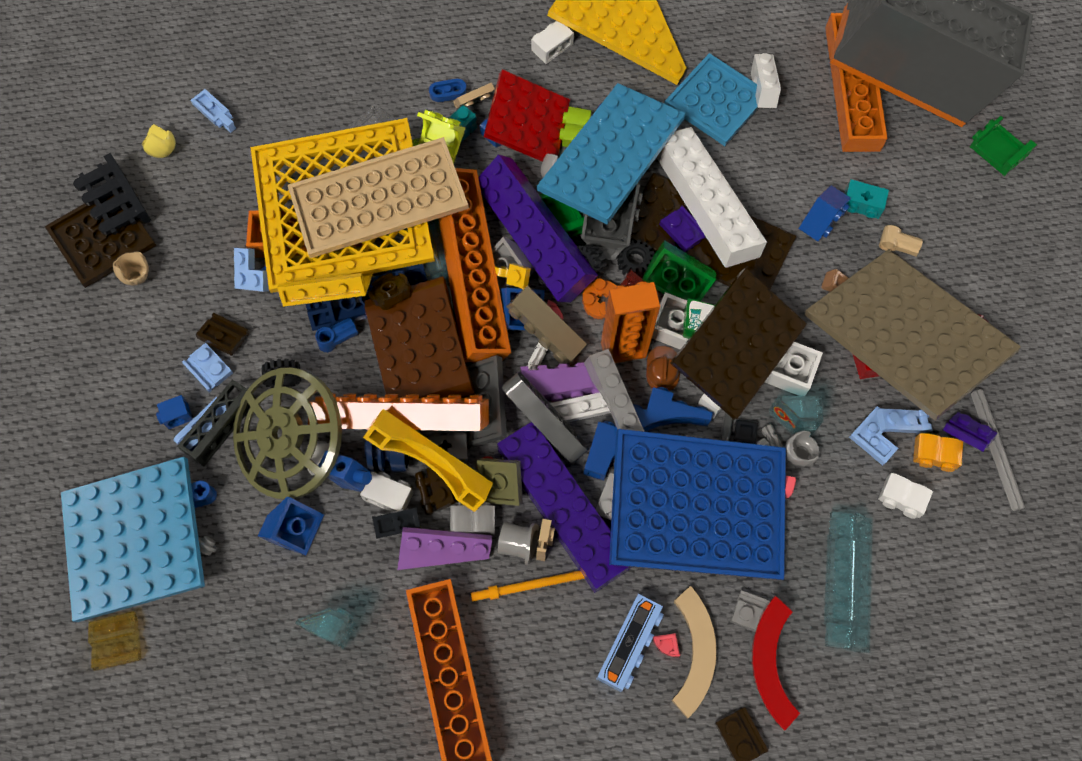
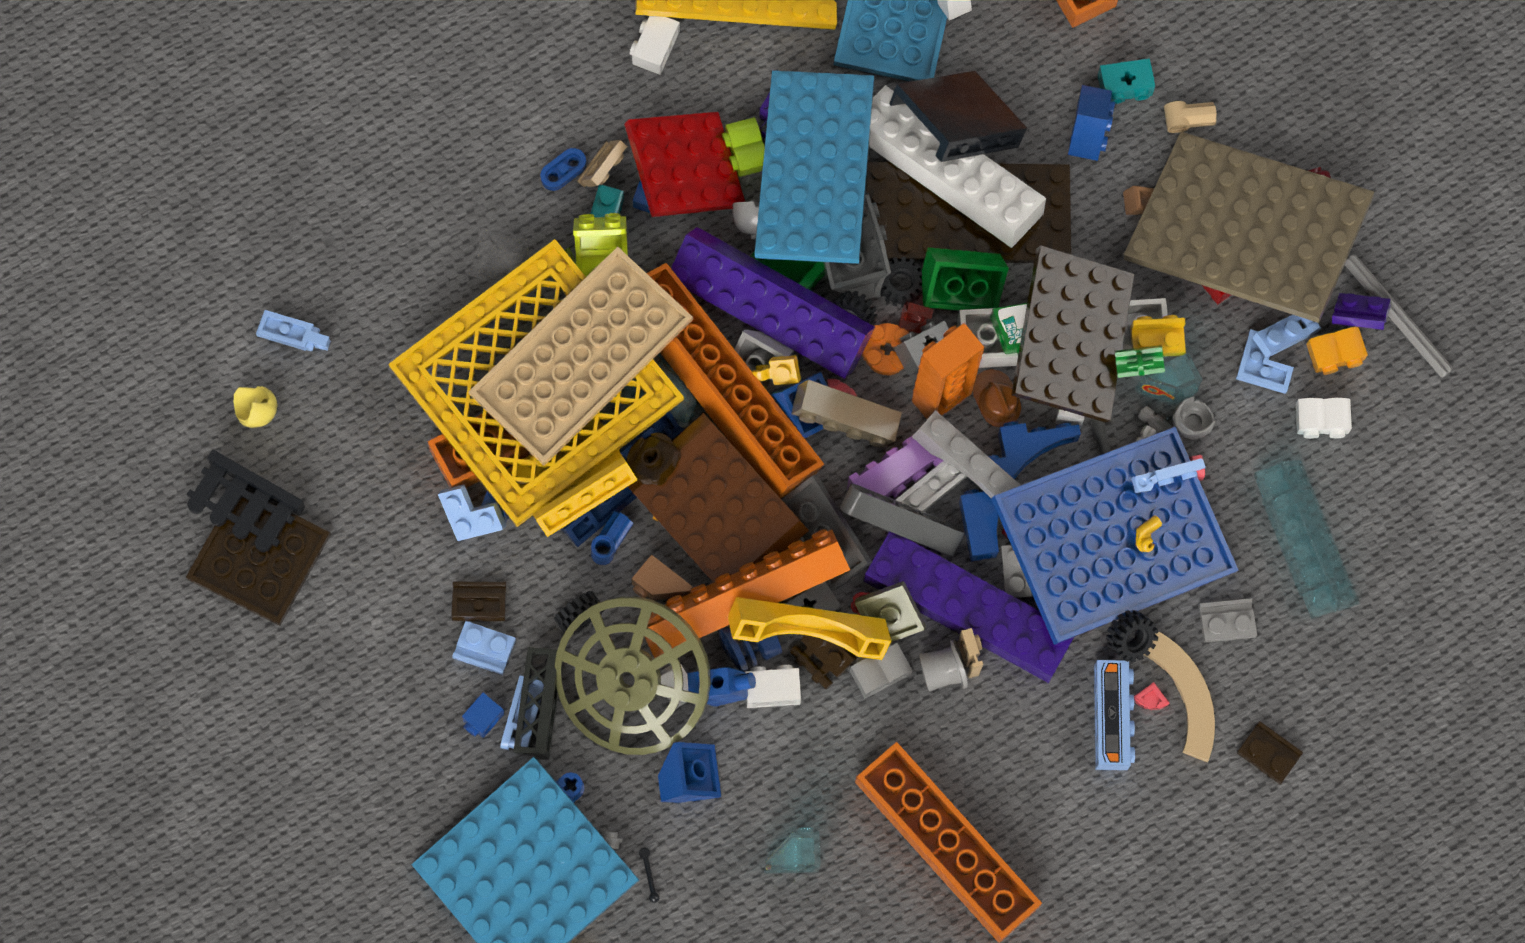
camera: 30 degrees left, 5 degrees up
(131, 268) = (327, 576): tan hair -> none
(226, 569) = (644, 854): none -> black hinge
(349, 378) = (658, 581): none -> medium nougat slope
(393, 522) = (803, 713): black hinge -> none
(439, 547) = (860, 717): medium lavender wing -> none
(494, 592) = (945, 734): light orange bar -> none
(537, 357) = (850, 456): white axle -> none
(677, 598) = (1123, 629): none -> black tyre
(682, 229) = (938, 219): dark purple plate -> none
(721, 515) = (1143, 534): none -> yellow arm
(733, 164) = (961, 114): none -> black panel
(745, 432) = (1122, 427): black tile -> none
(759, 479) = (1165, 476): none -> light blue hinge
(764, 663) = (1258, 665): red tile -> none
(780, 385) = (1139, 361): none -> green hips
(803, 375) = (1155, 332): none -> yellow bracket

